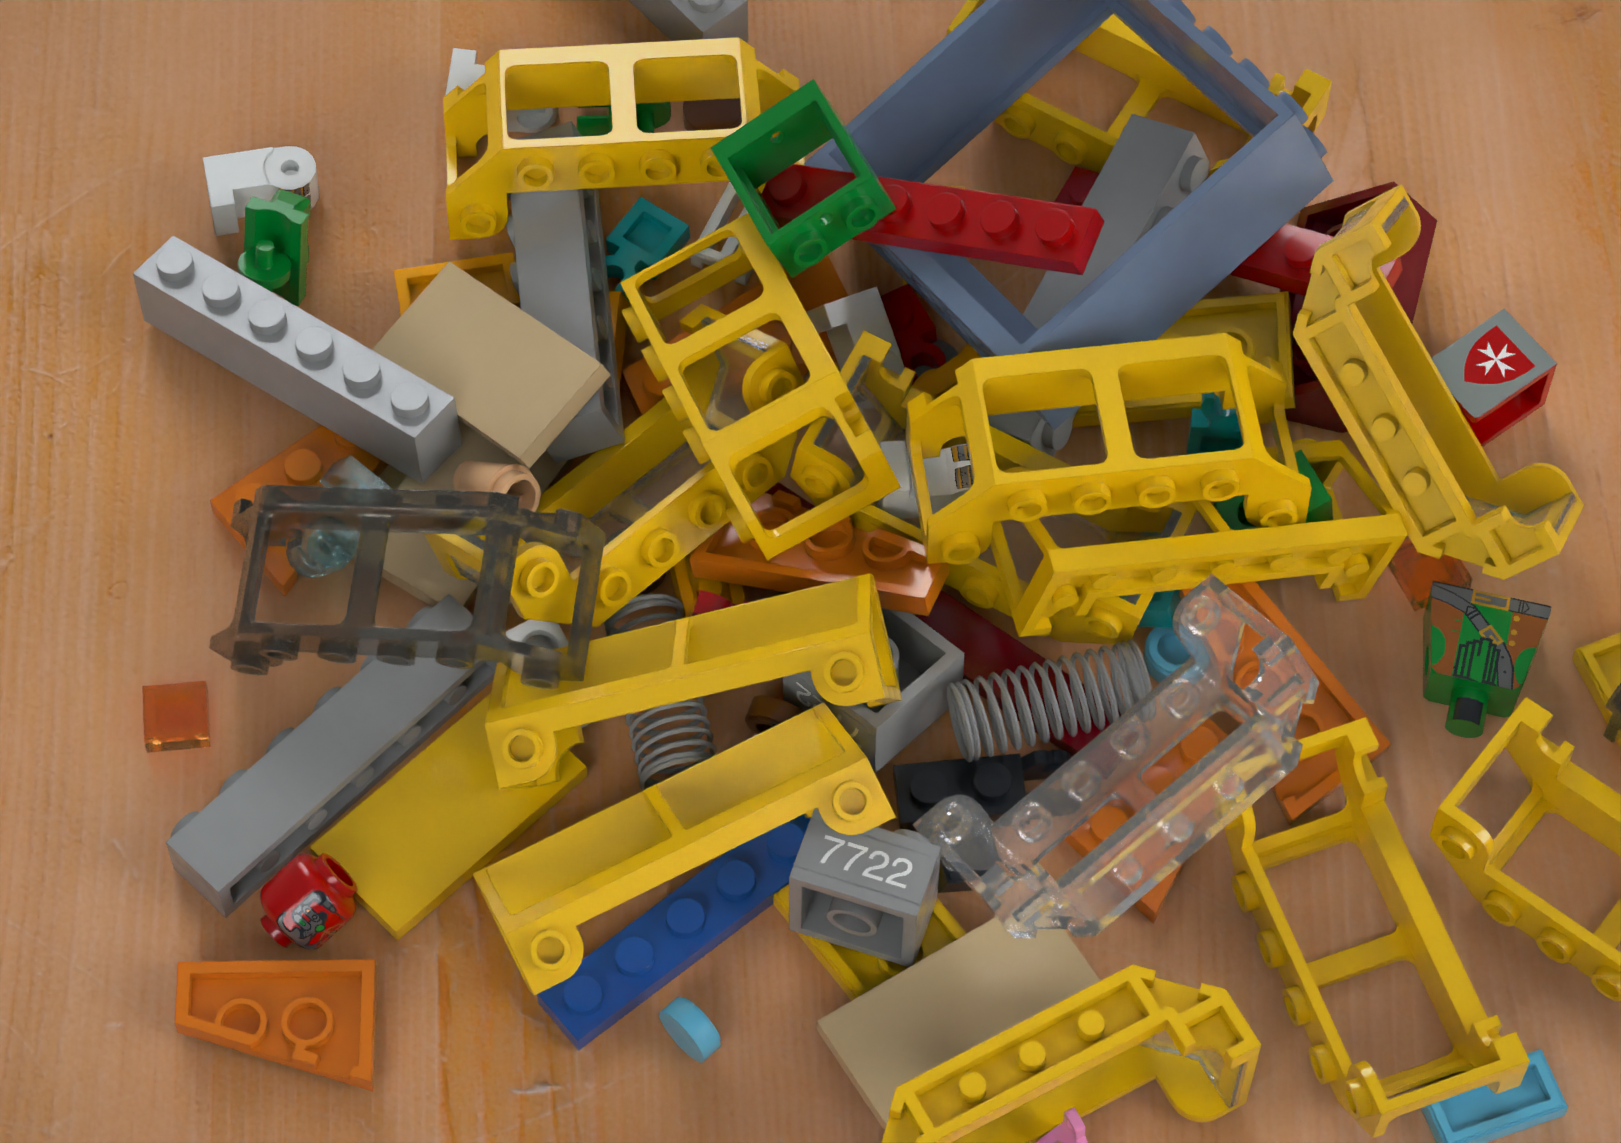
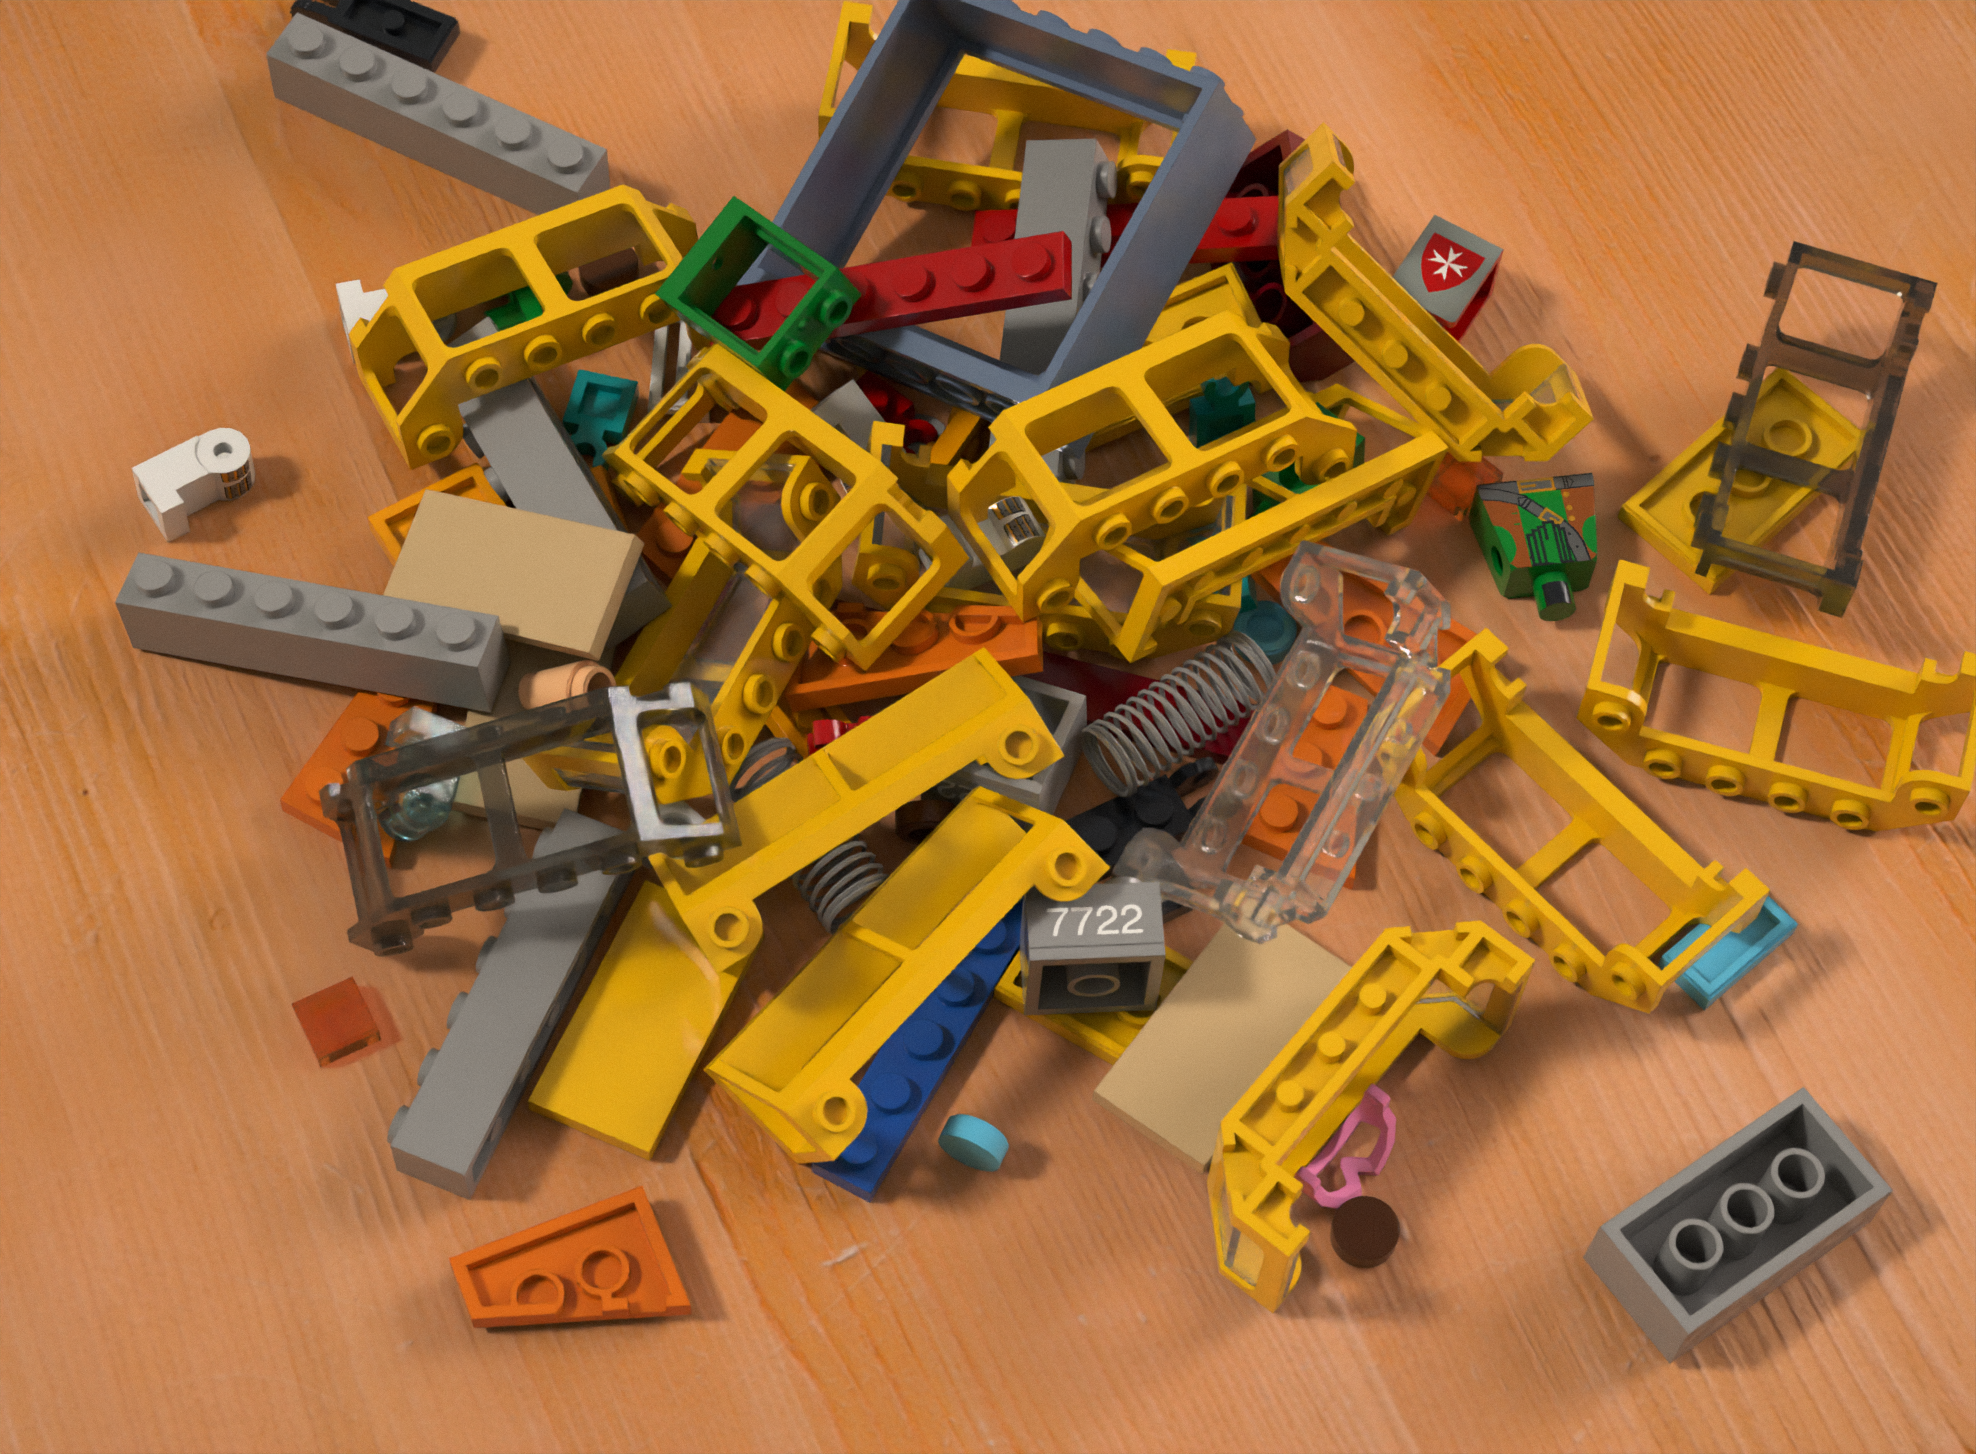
camera: 25 degrees left, 0 degrees up
(277, 244) = (245, 524): green hips -> none
(308, 901) = (552, 1153): red head -> none

